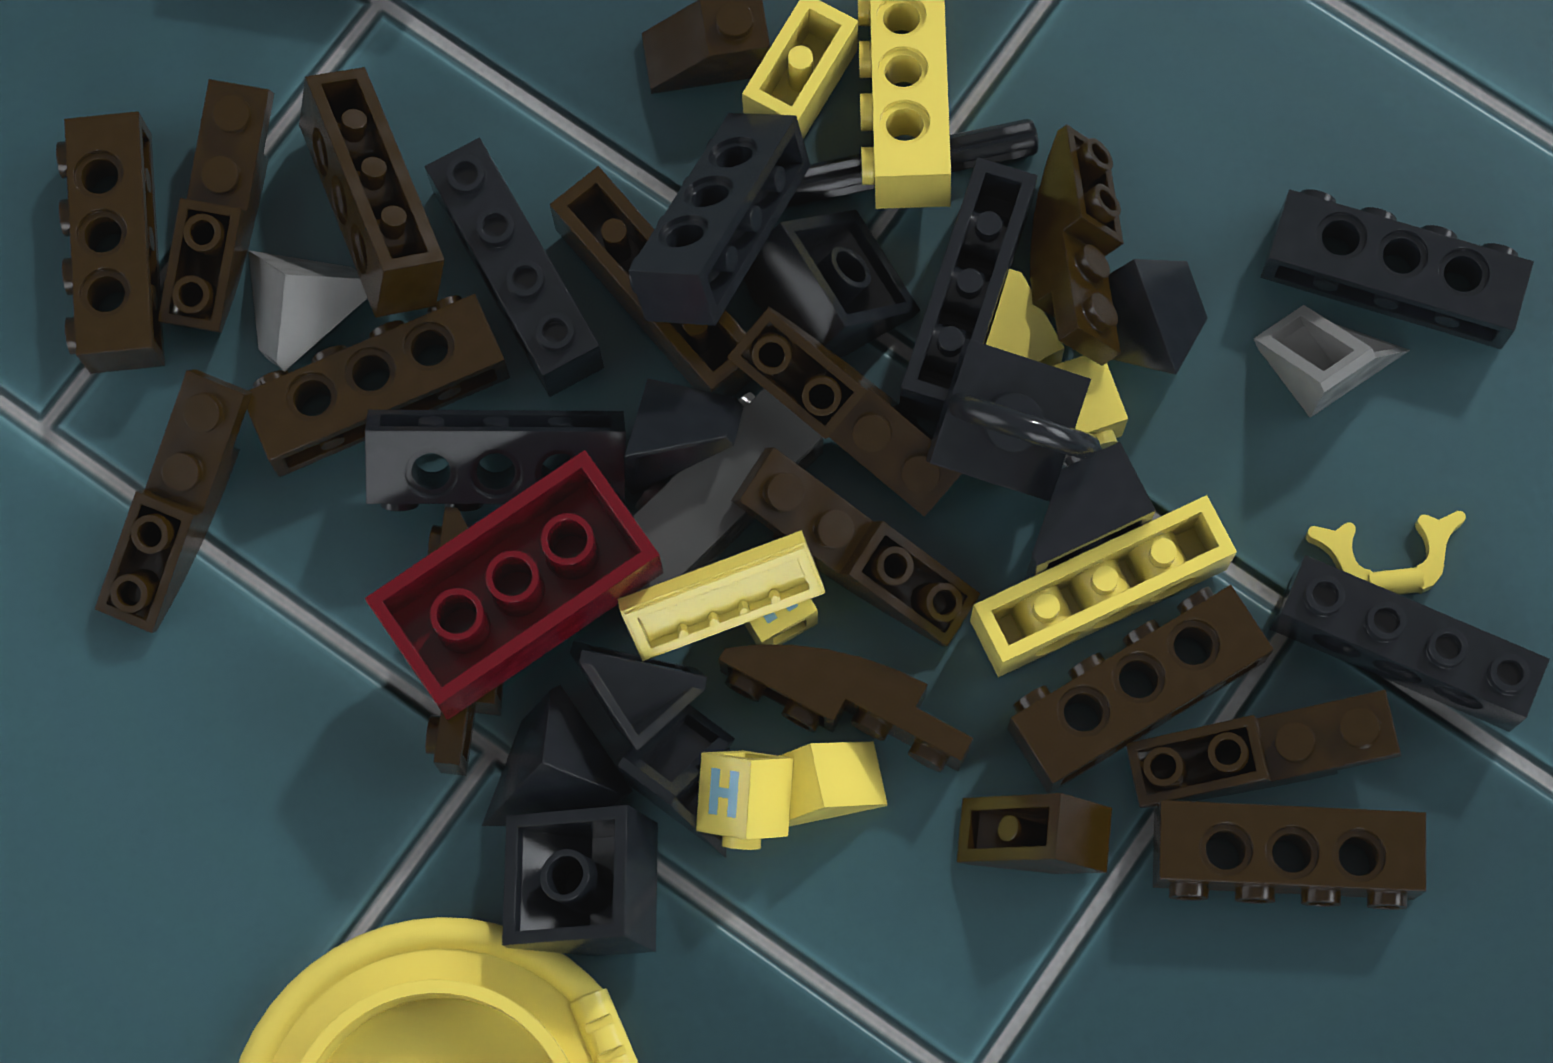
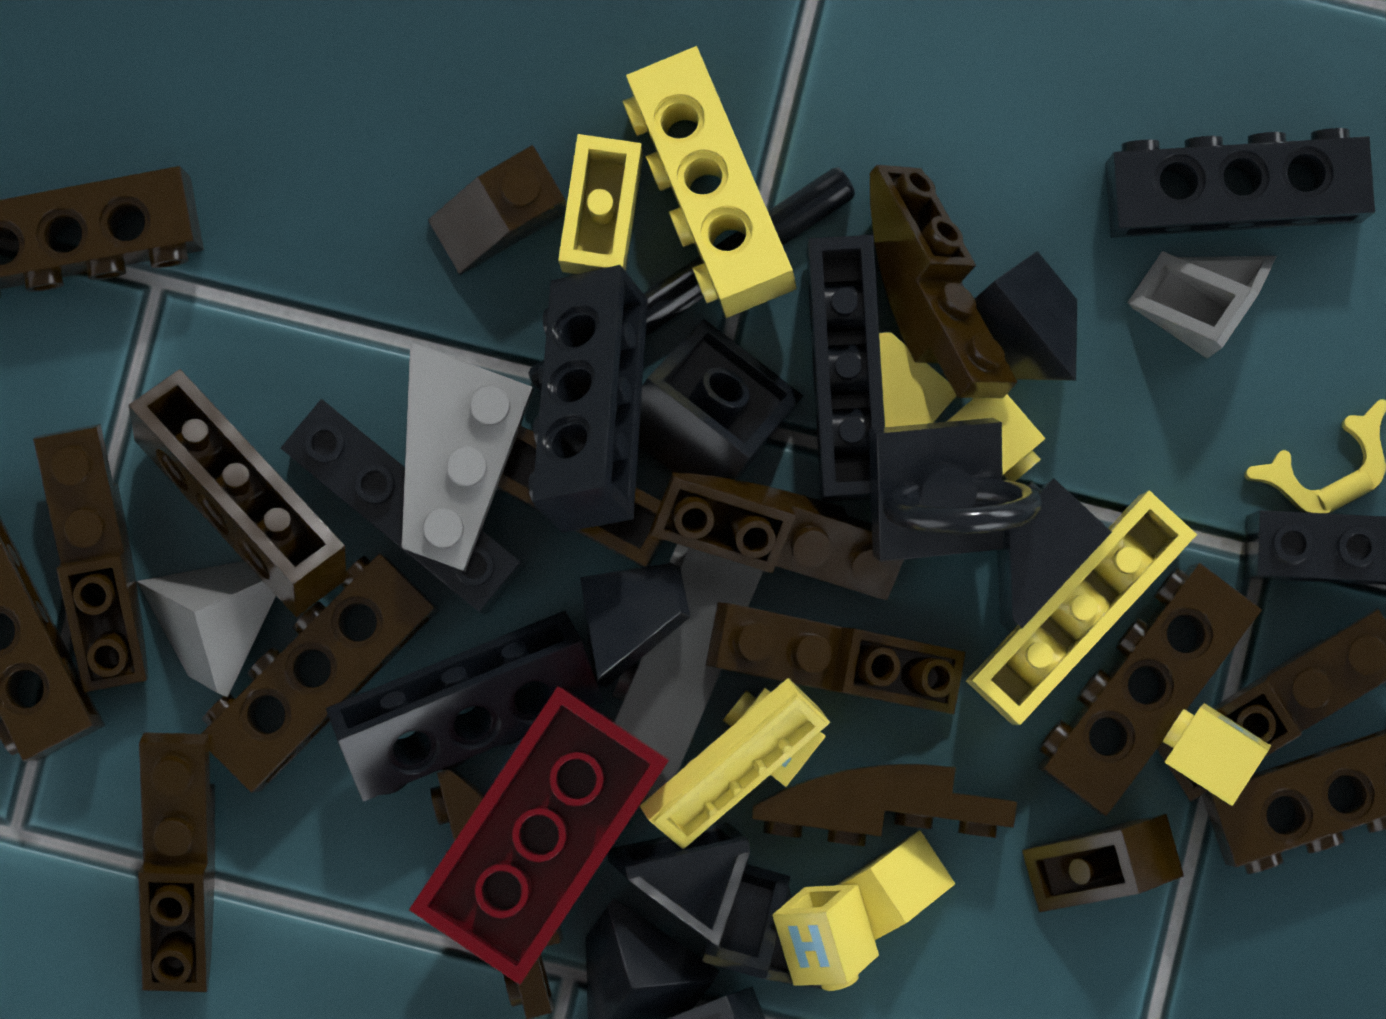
camera: 20 degrees left, 10 degrees up
(579, 222) = (455, 451): none -> light grey wing
(1178, 755) = (1214, 752): none -> light yellow brick

